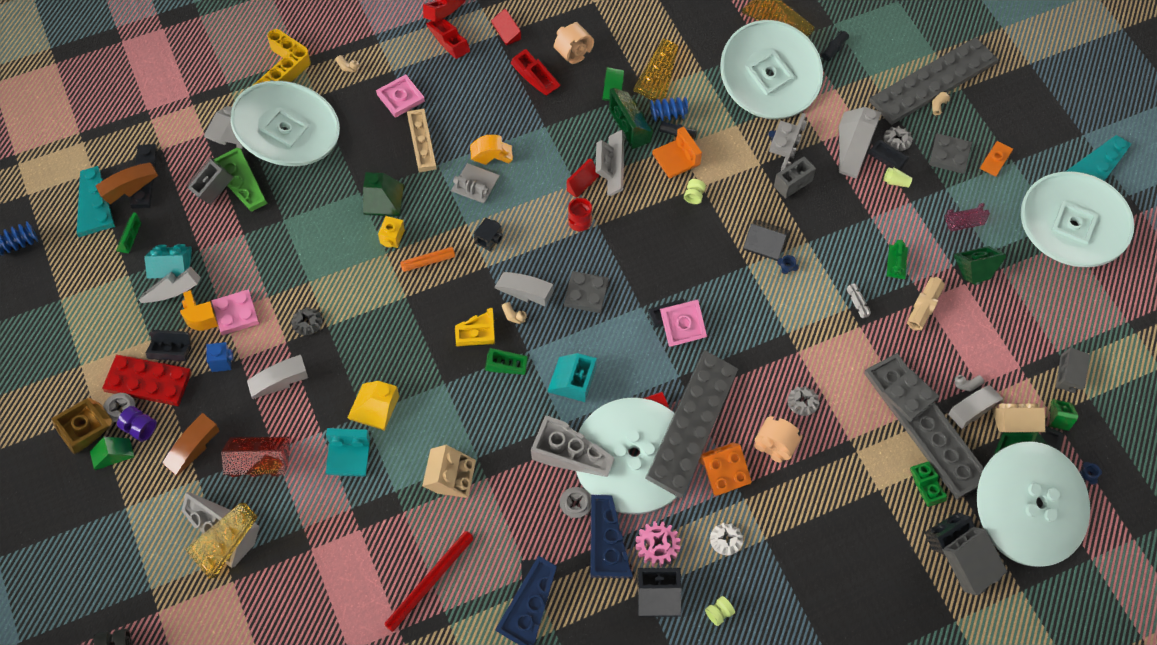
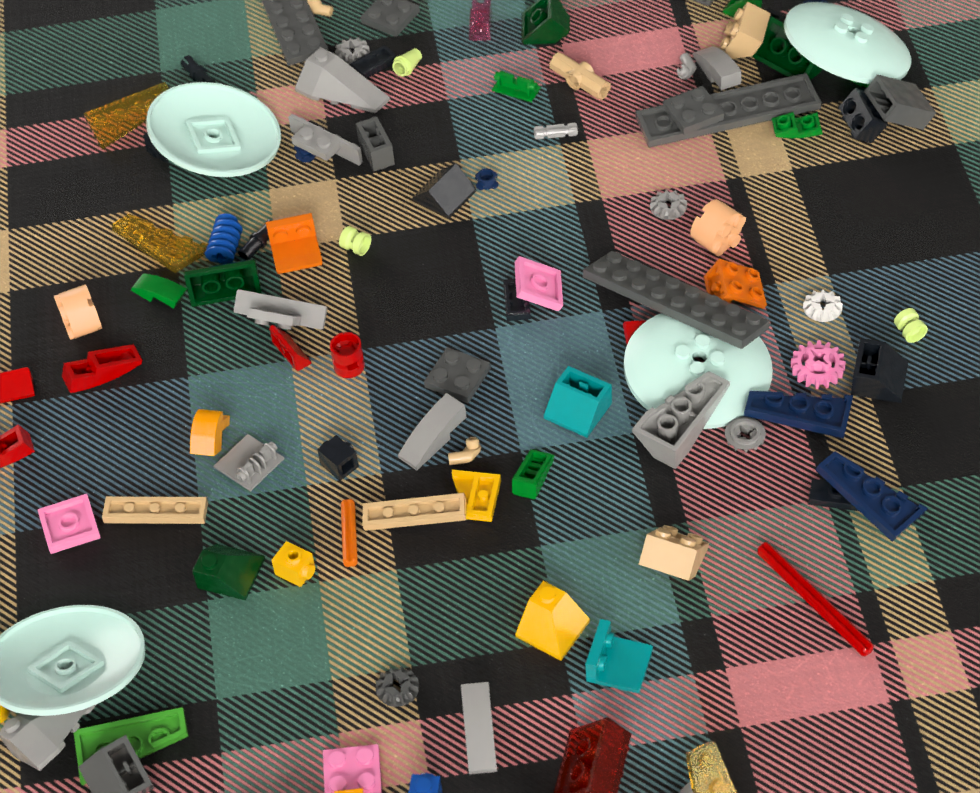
camera: 70 degrees left, 10 degrees down
(449, 293) = (414, 511): none -> tan plate

